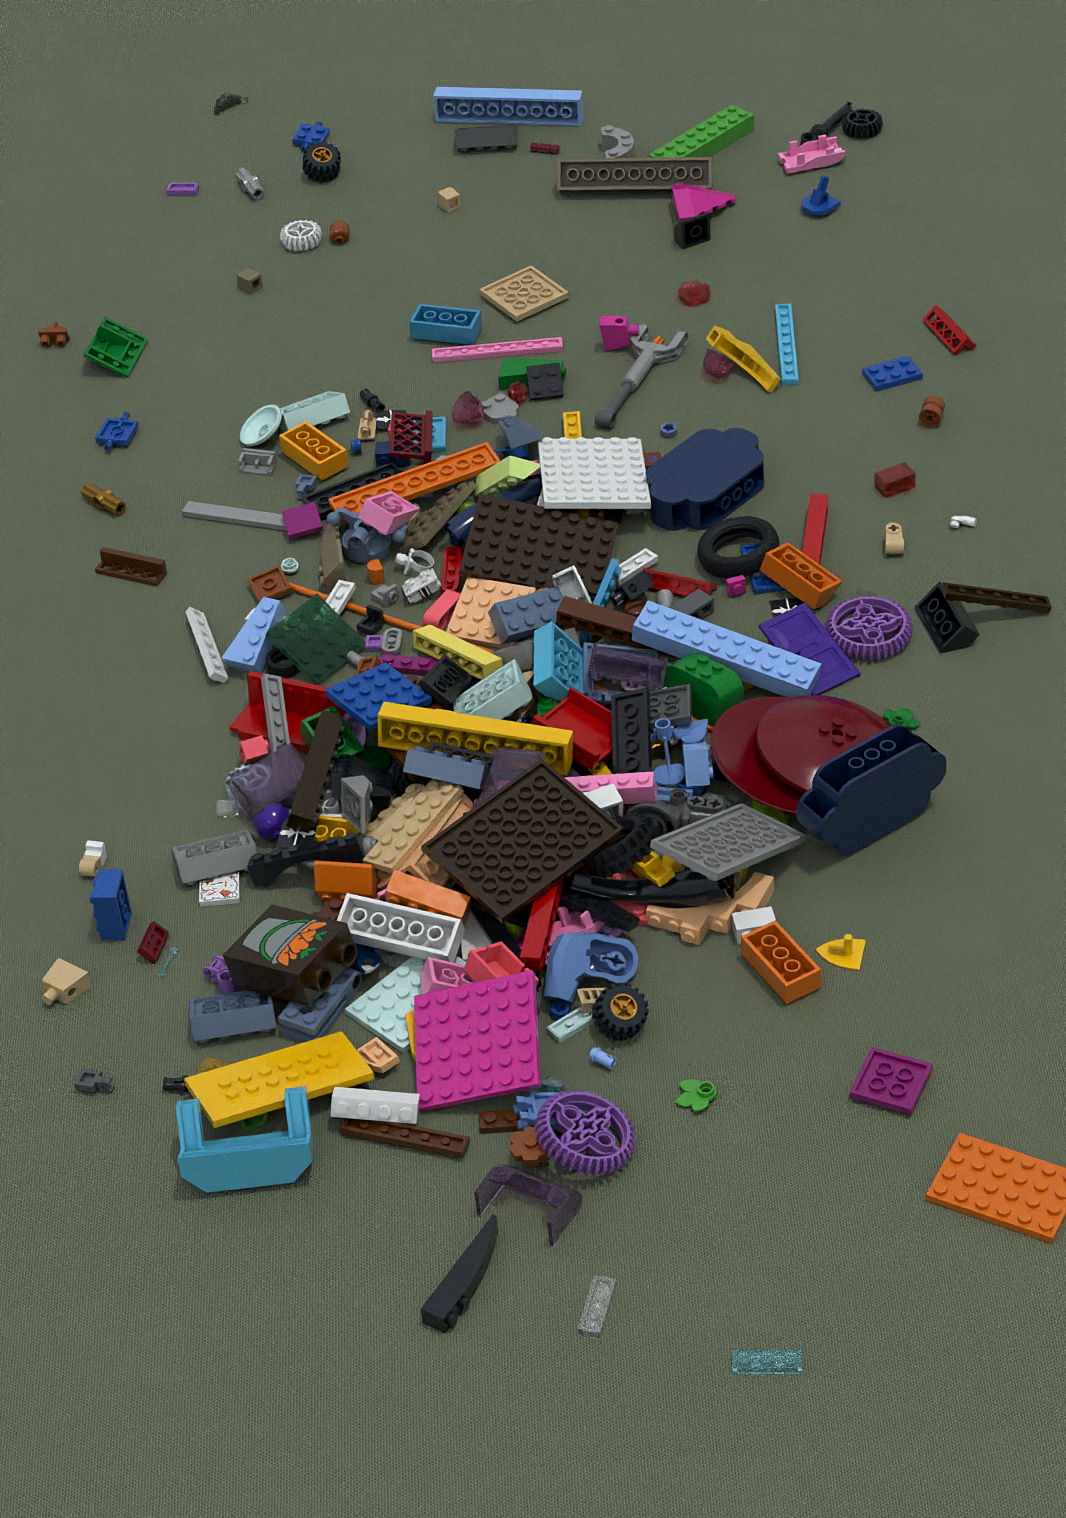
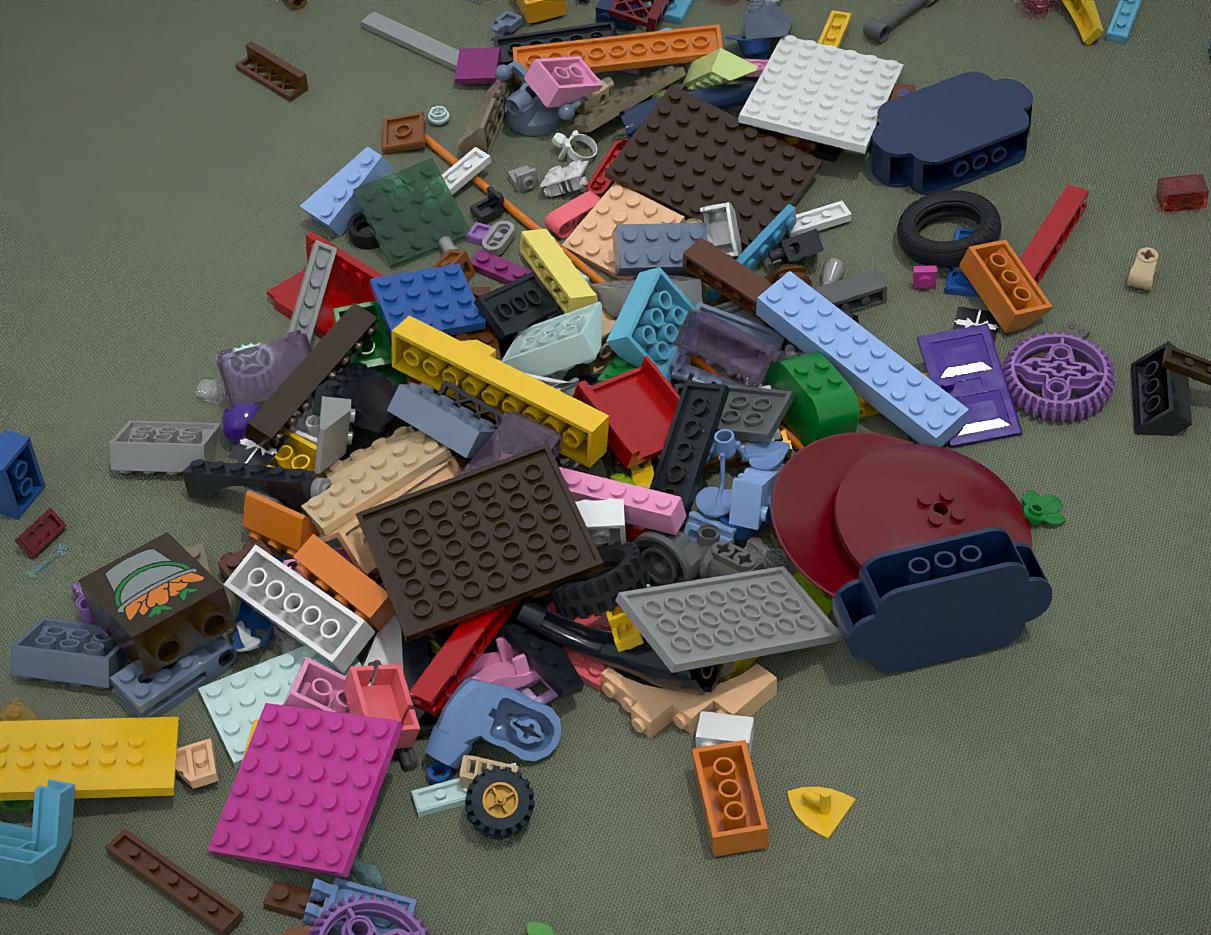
camera: 20 degrees right, 5 degrees up
(93, 859) = (36, 410): leg -> none
(206, 645) = (298, 185): white plate -> none
(220, 890) = (150, 490): white tile -> none
(253, 750) = (268, 328): coral brick -> none
(375, 572) = (525, 147): orange brick -> none
(375, 1105) = (155, 831): white brick -> none
(602, 1058) = (450, 852): light blue pin -> none
(668, 430) = (944, 61): sand blue tile -> none
(678, 584) = (857, 254): red fence -> none

